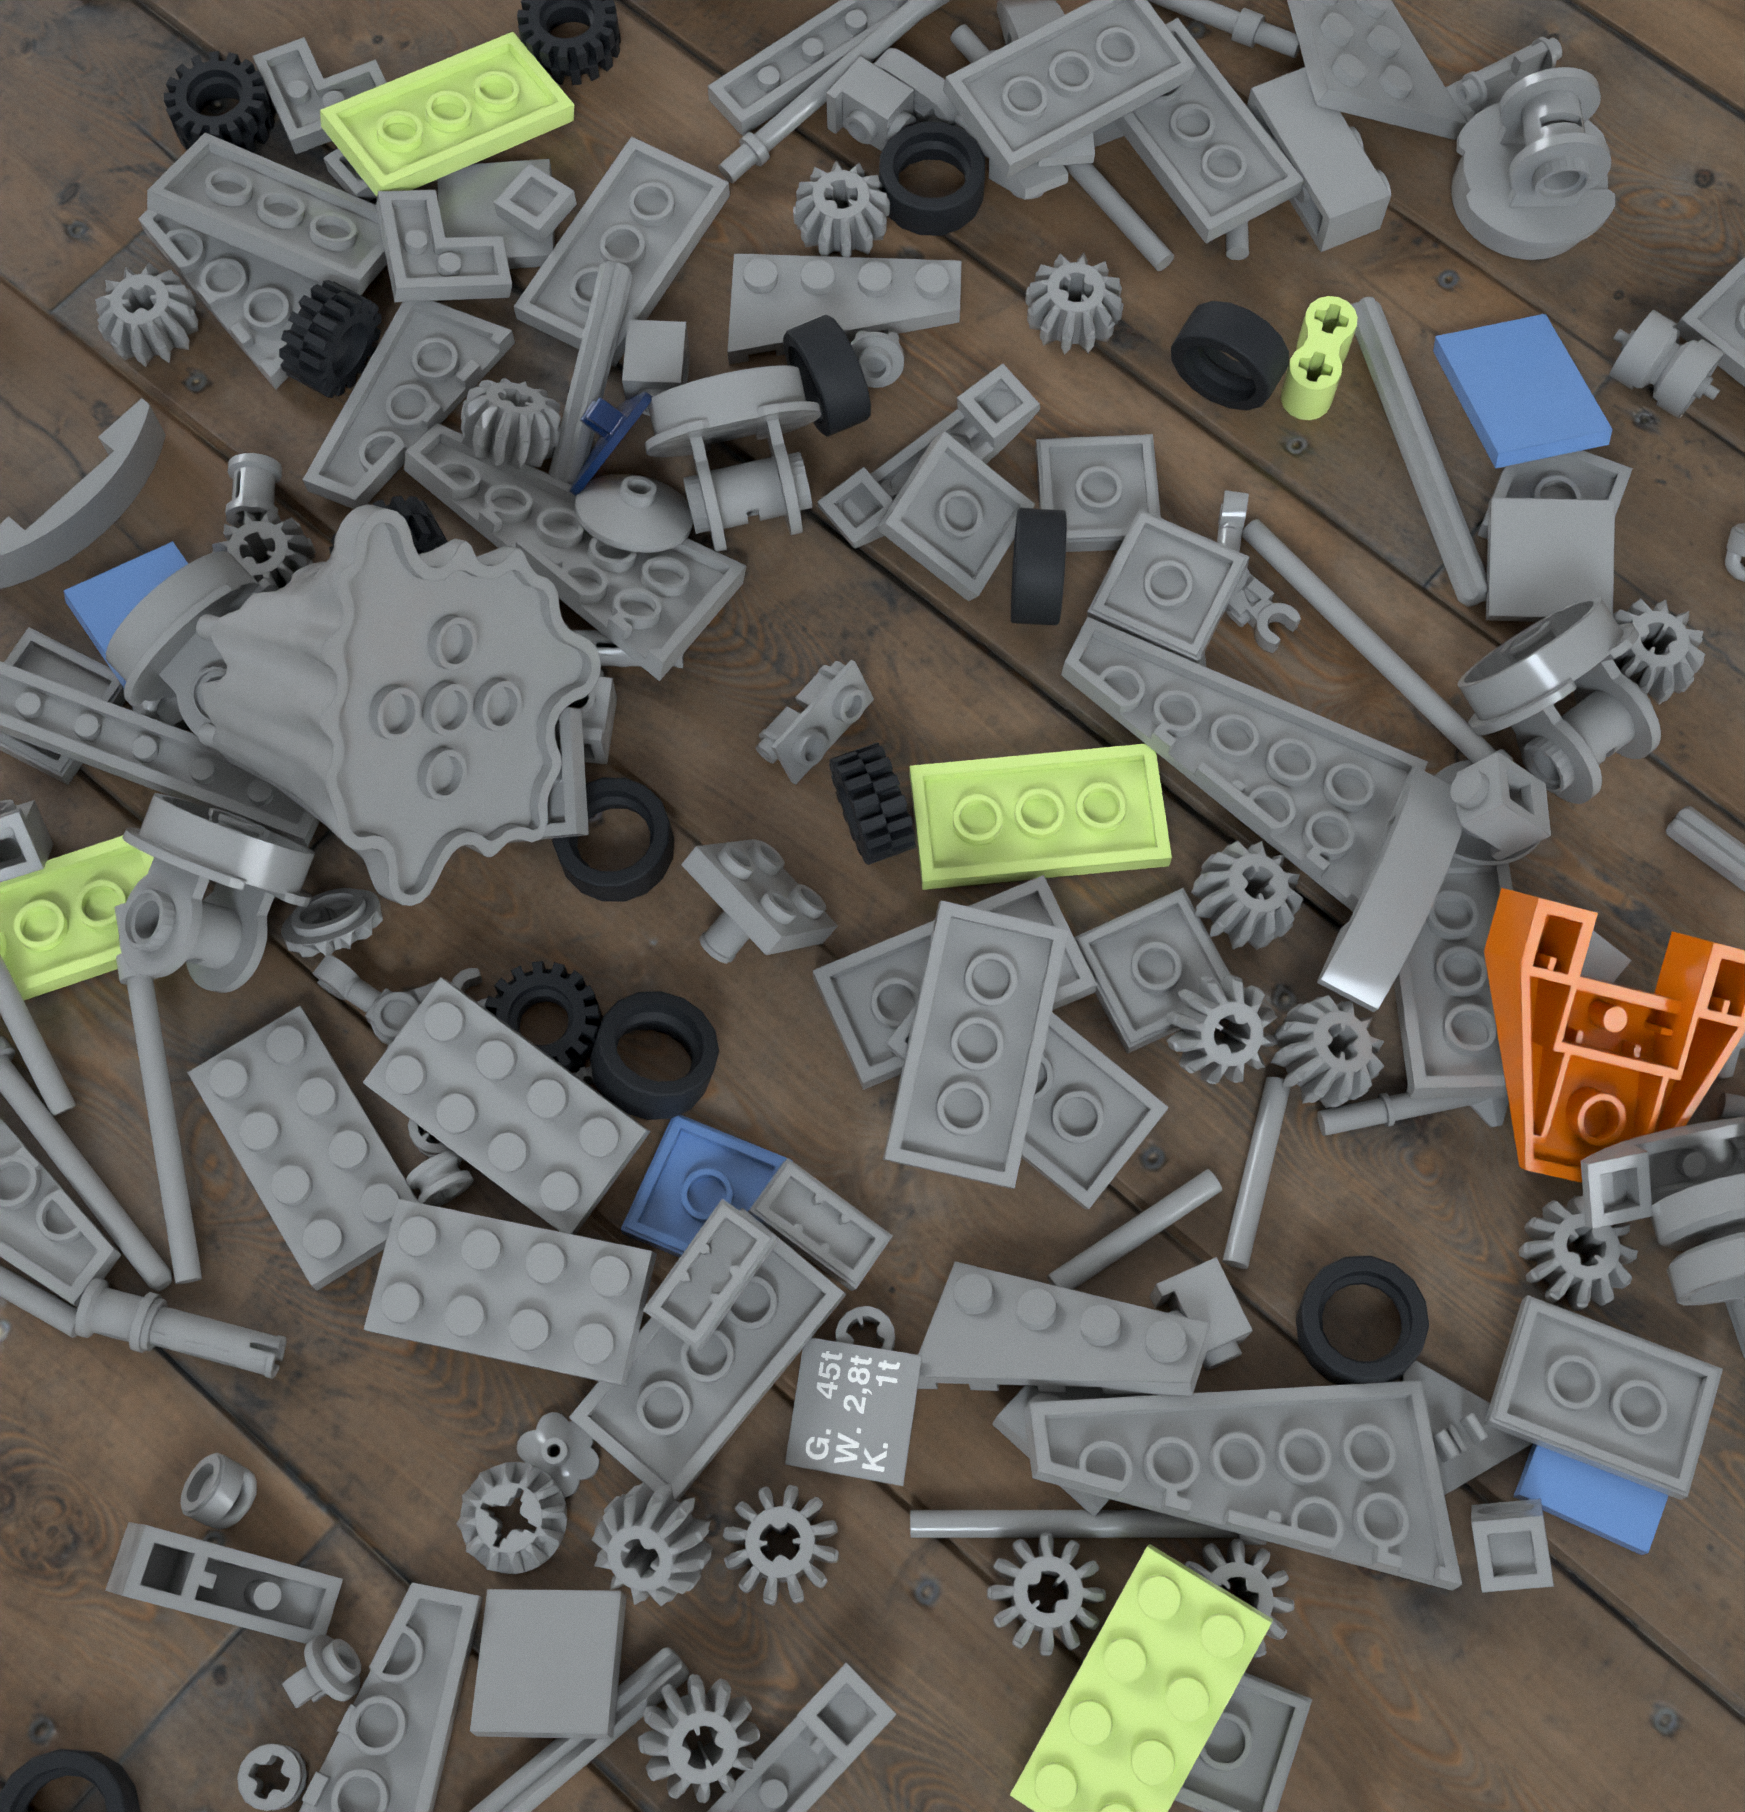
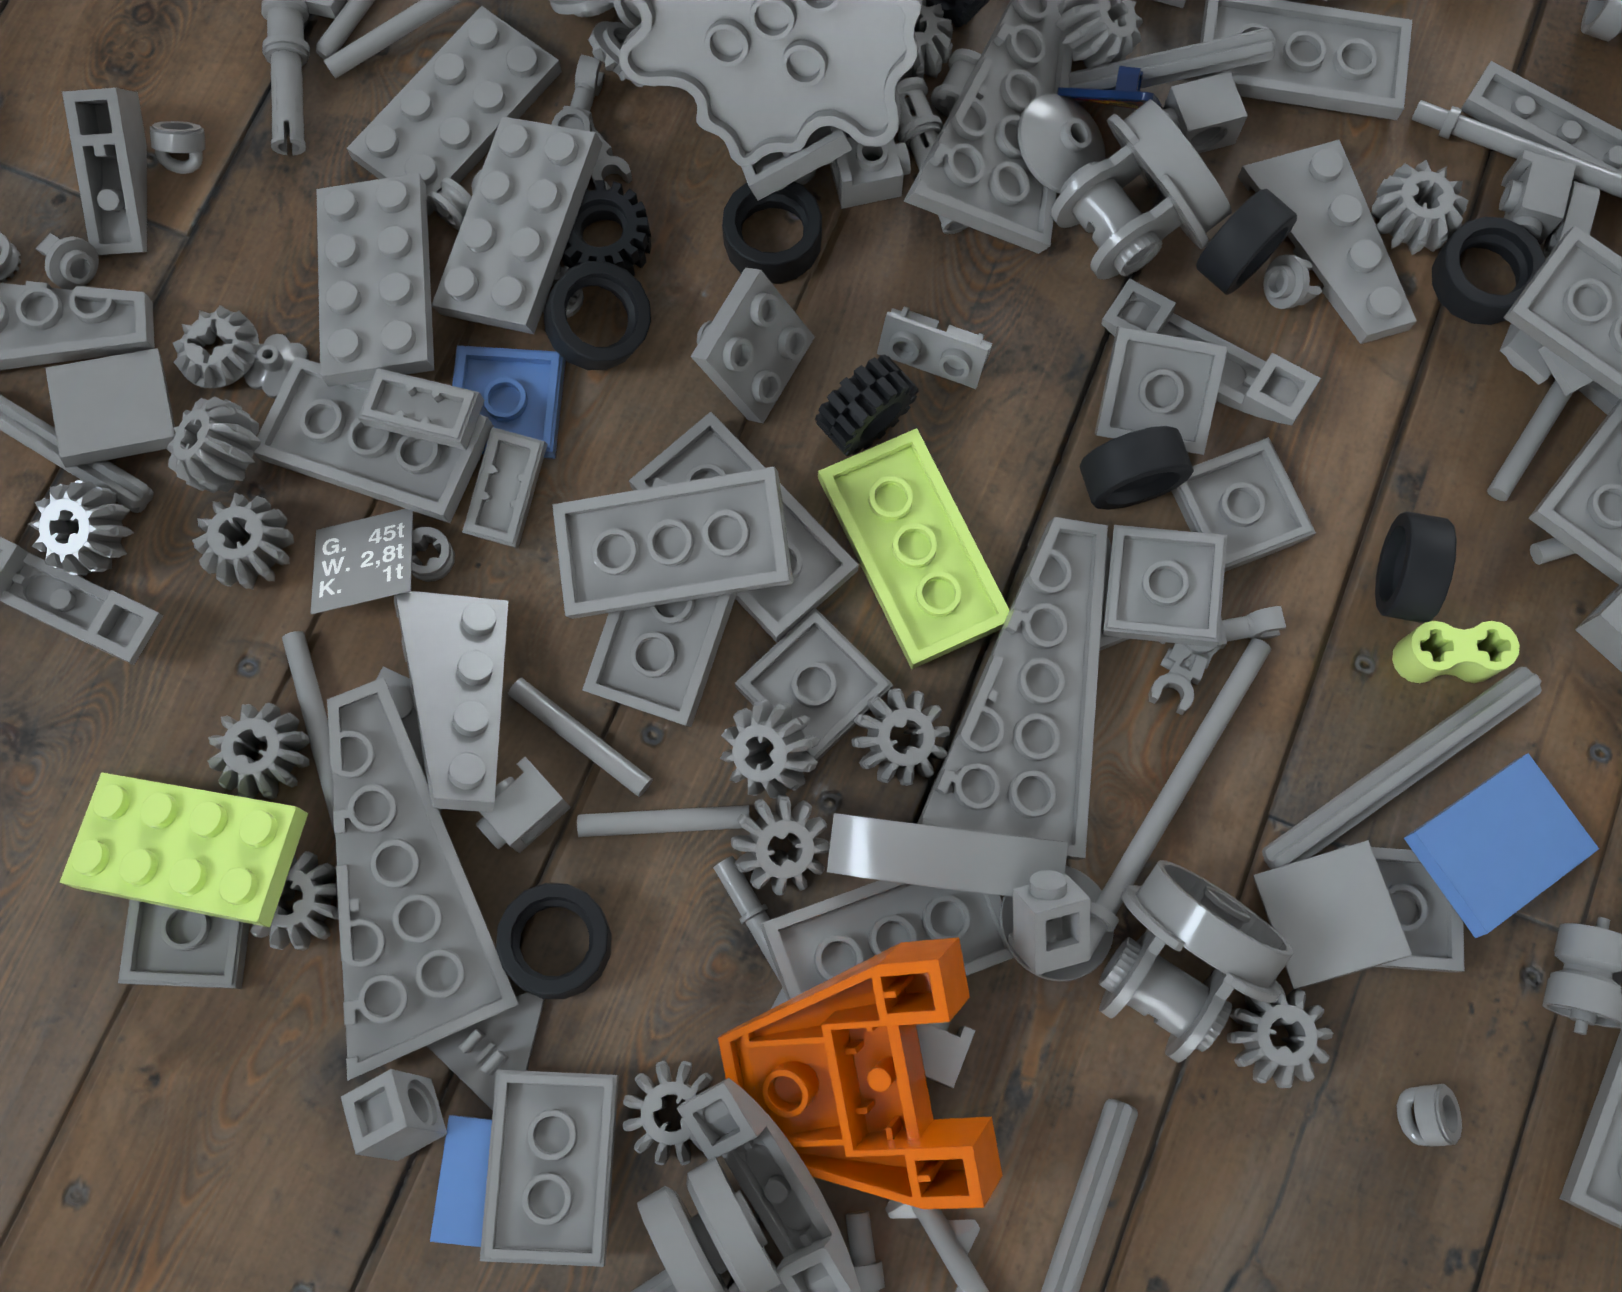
camera: 70 degrees right, 5 degrees up
(1074, 303) = (1400, 416): light grey gear -> none

